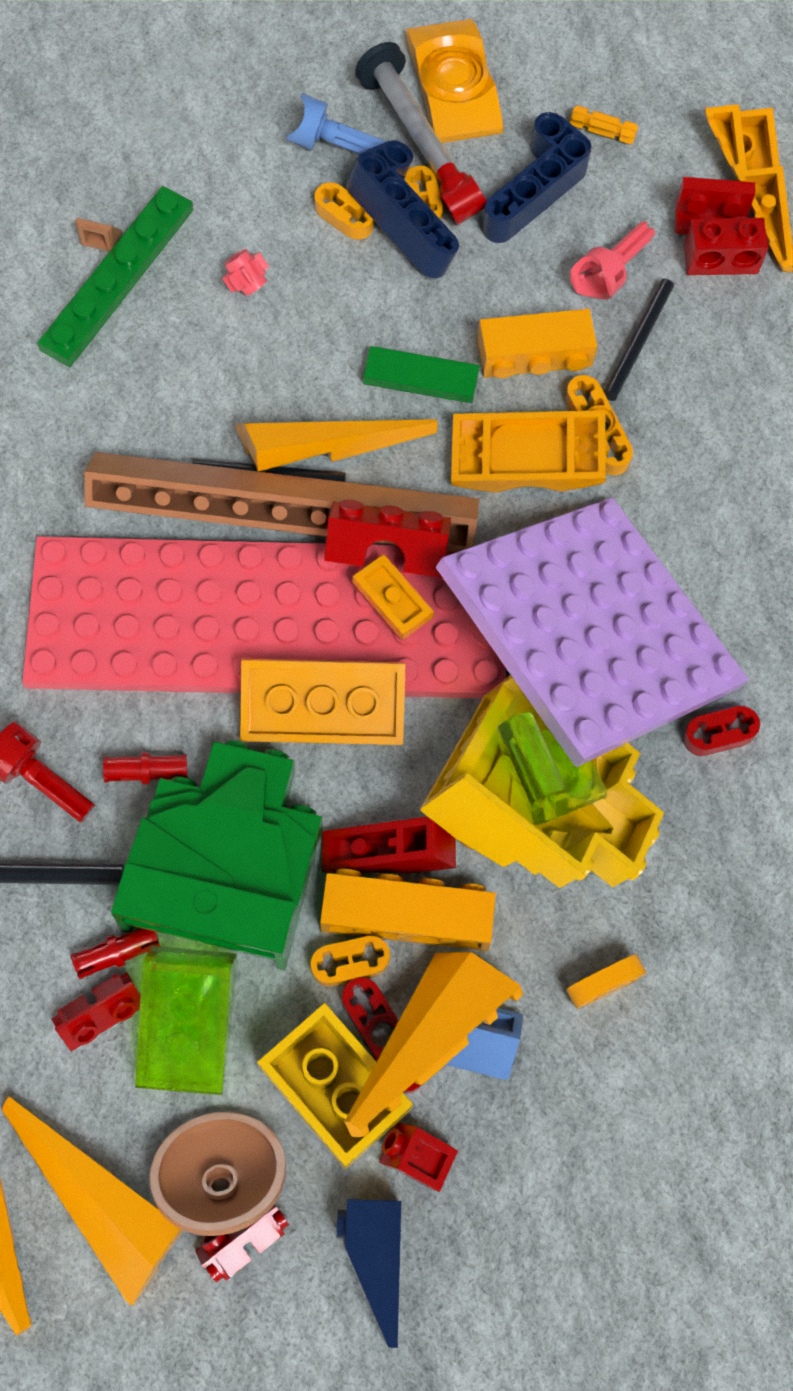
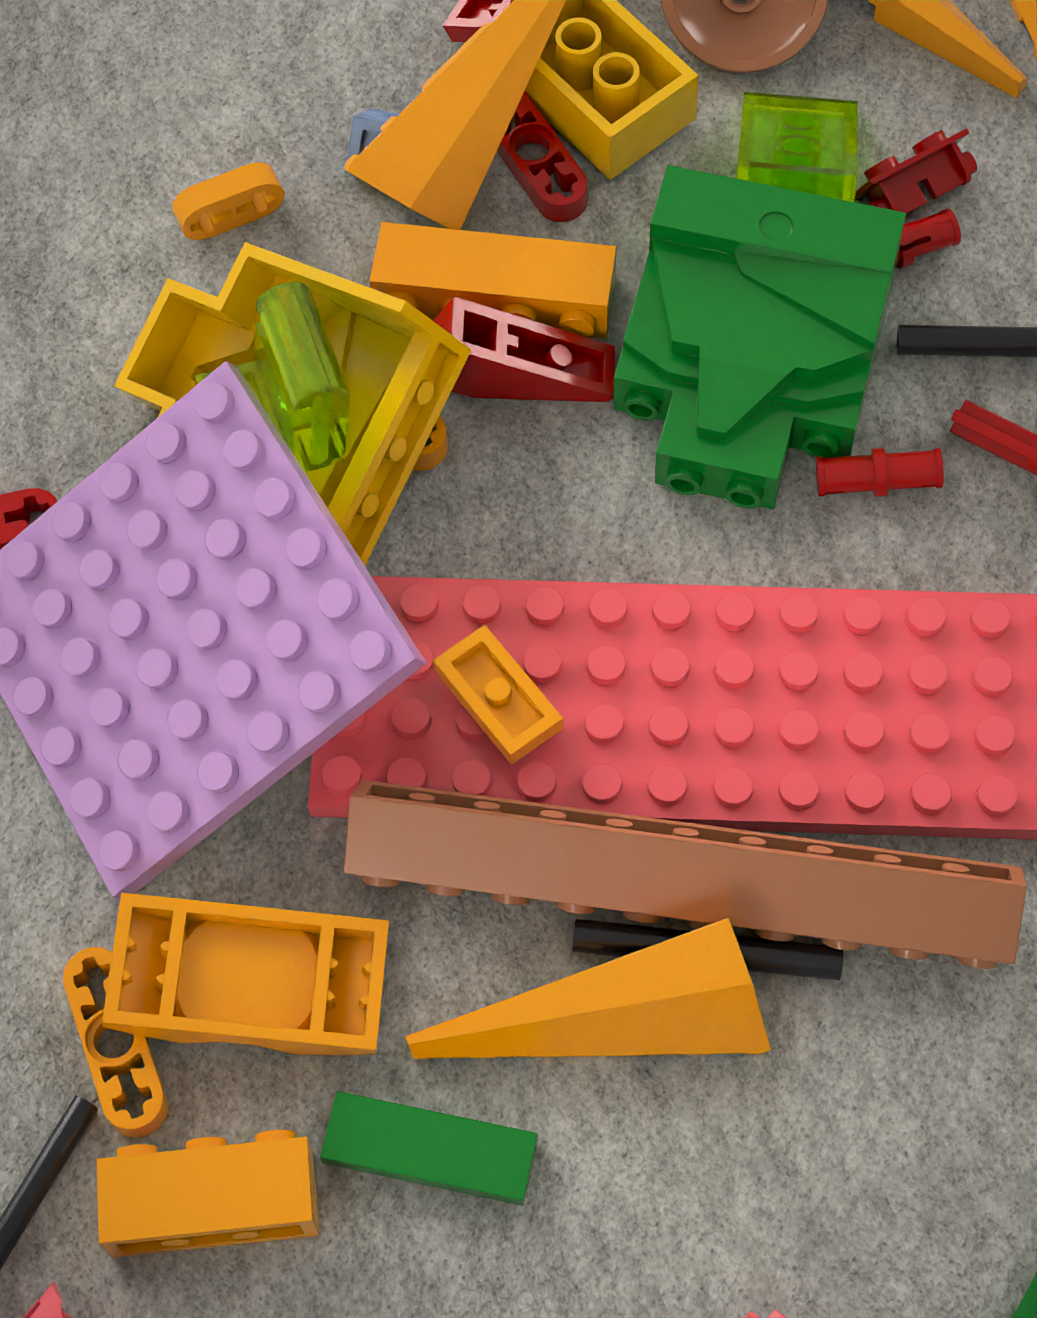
camera: 170 degrees left, 5 degrees down
(322, 701) = (612, 550): light orange plate -> none
(347, 951) = (579, 221): light orange beam -> none
(357, 526) = (539, 780): red arch -> none

